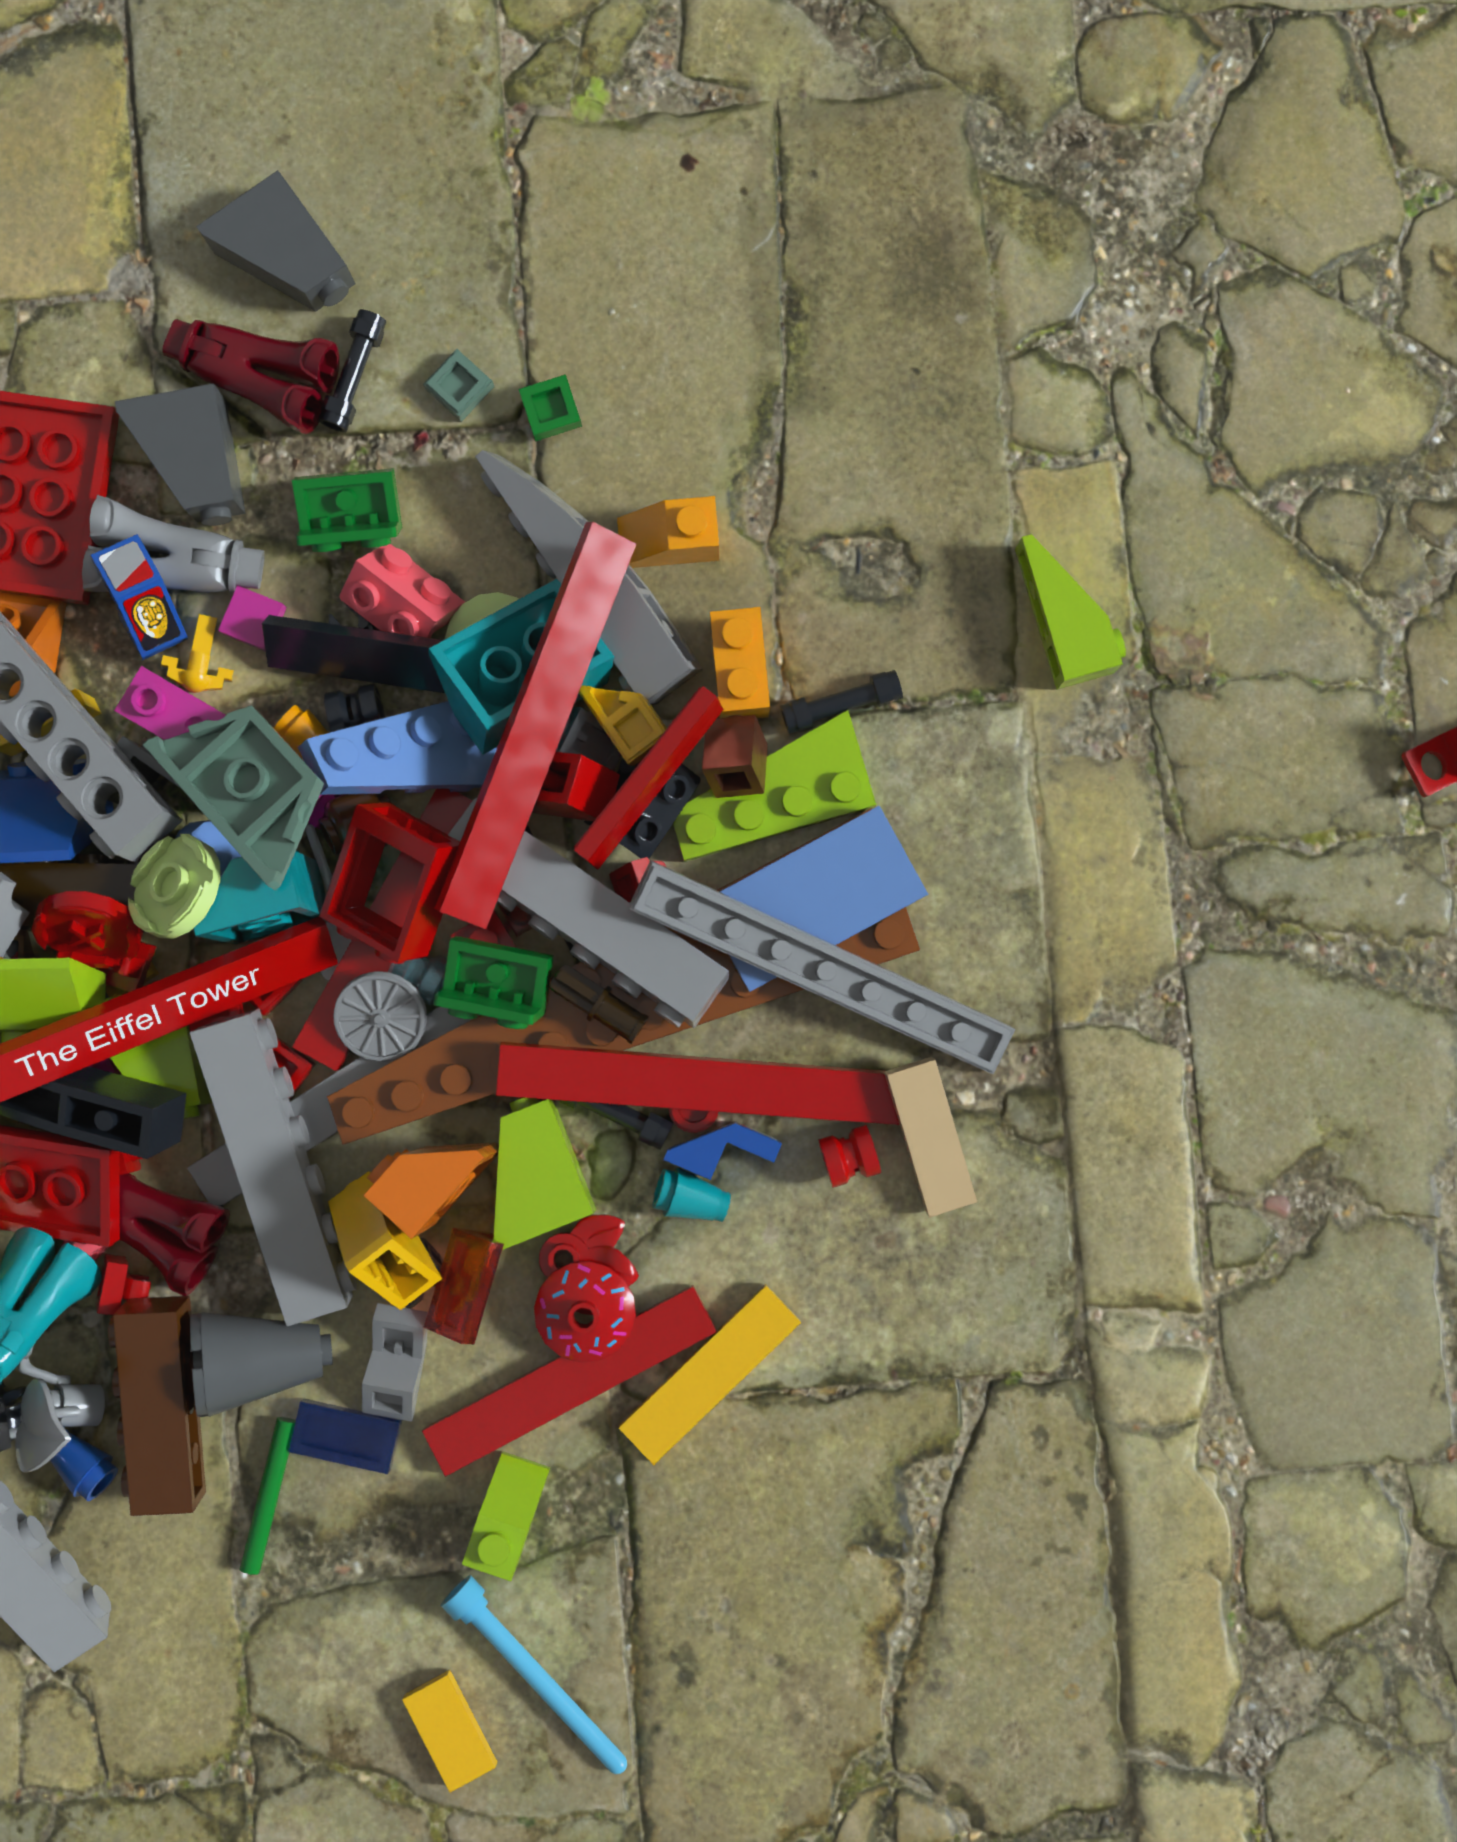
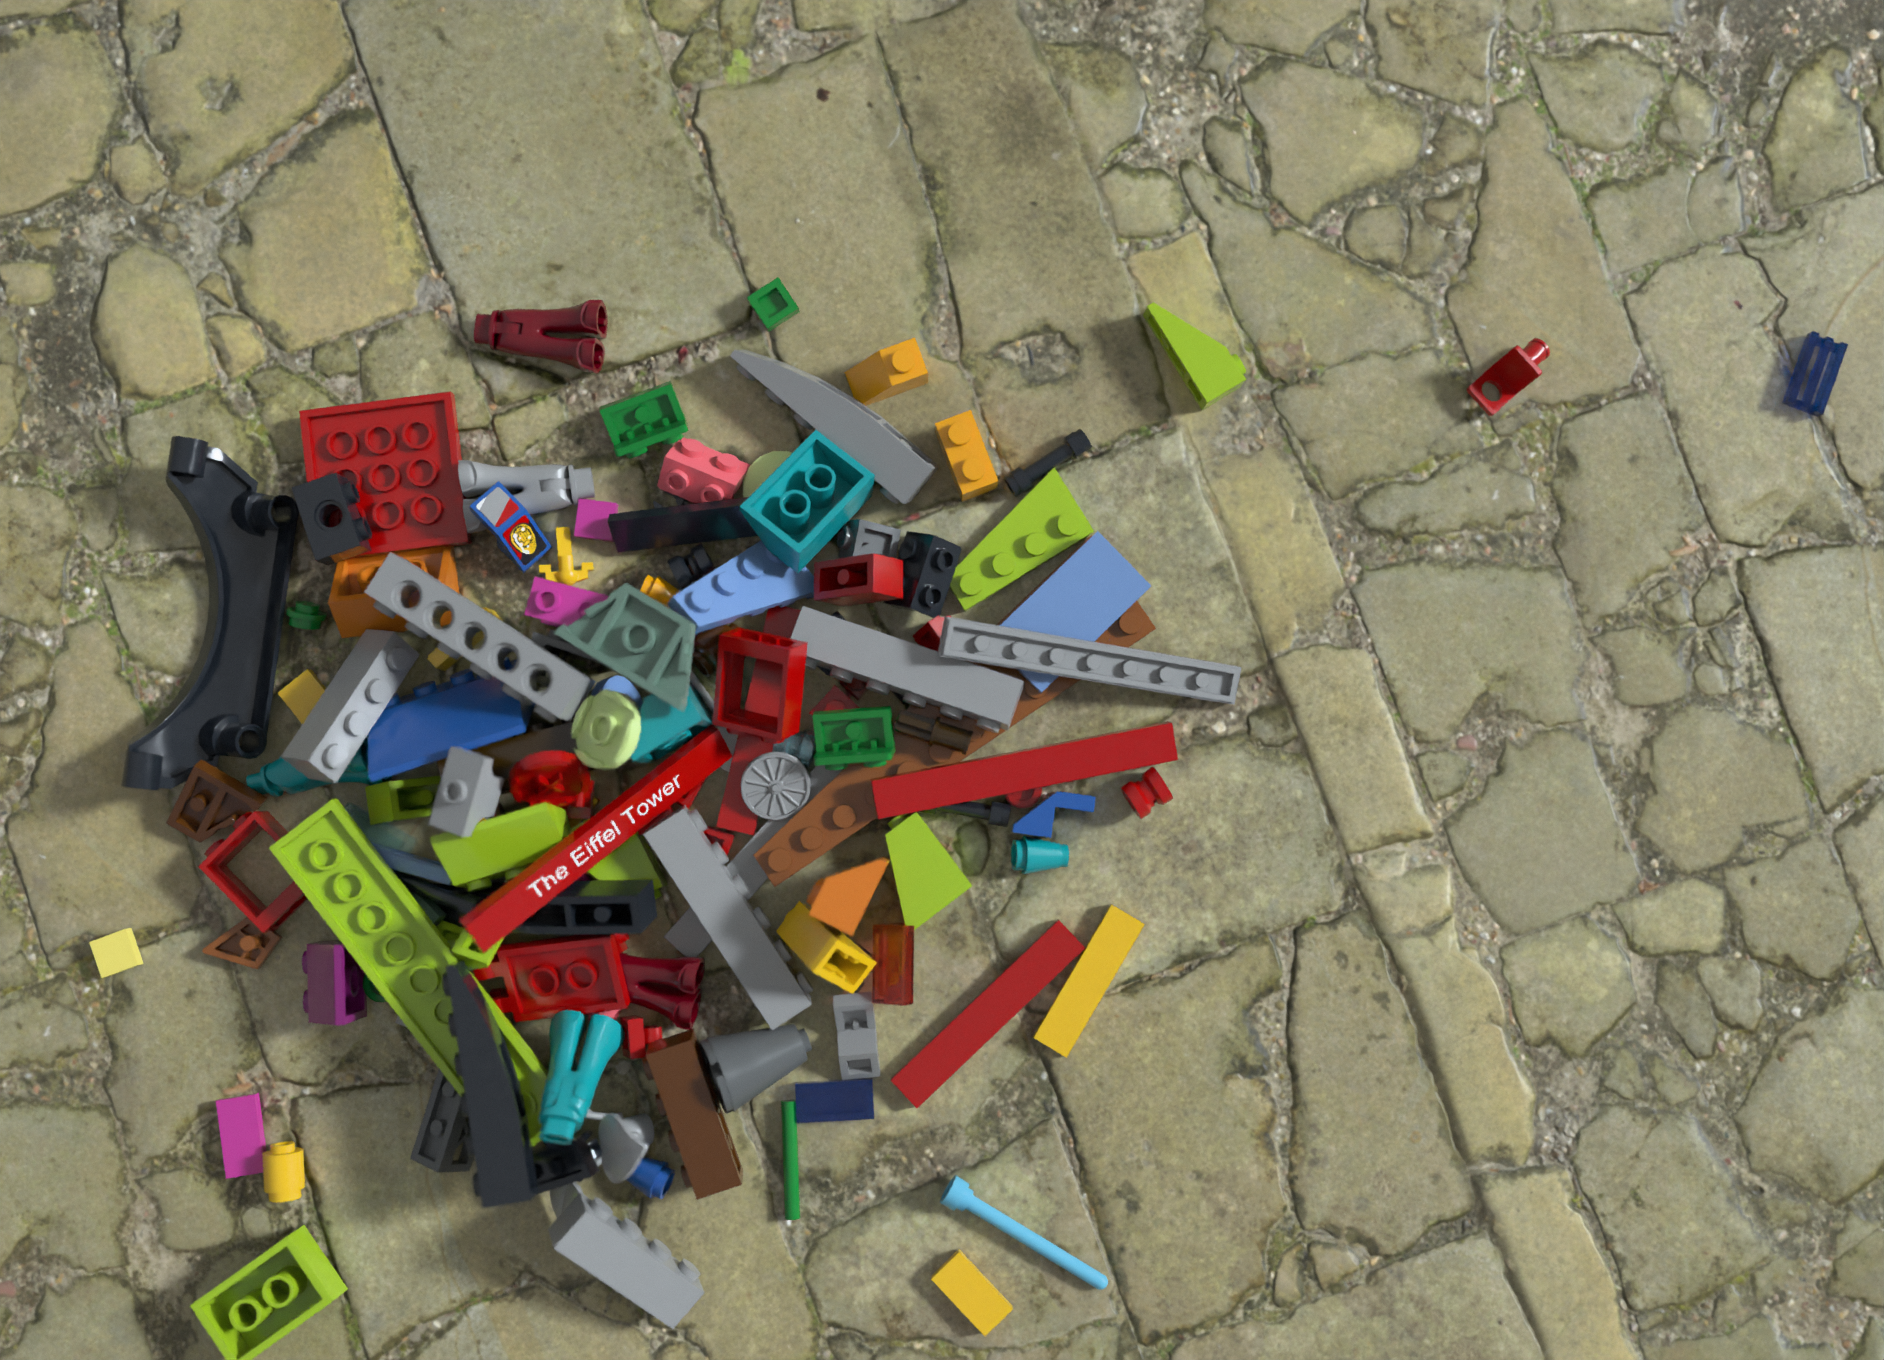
camera: 20 degrees left, 0 degrees up
(191, 448) = (516, 407): dark grey slope -> none
(279, 244) = (539, 238): dark grey slope -> none
(366, 331) = (621, 285): black bar -> none
(459, 385) = (700, 305): sand green tile -> none
(506, 1516) = (970, 1124): lime slope -> none
(535, 725) = (833, 541): tile -> none
(590, 1240) = (983, 923): red plate -> none
(590, 1287) = (981, 940): red dish -> none
(626, 720) = (896, 519): yellow tile -> none
(649, 777) = (926, 556): red tile -> none
(735, 756) = (982, 524): copper brick -> none
(930, 1136) = (1201, 762): tan tile -> none

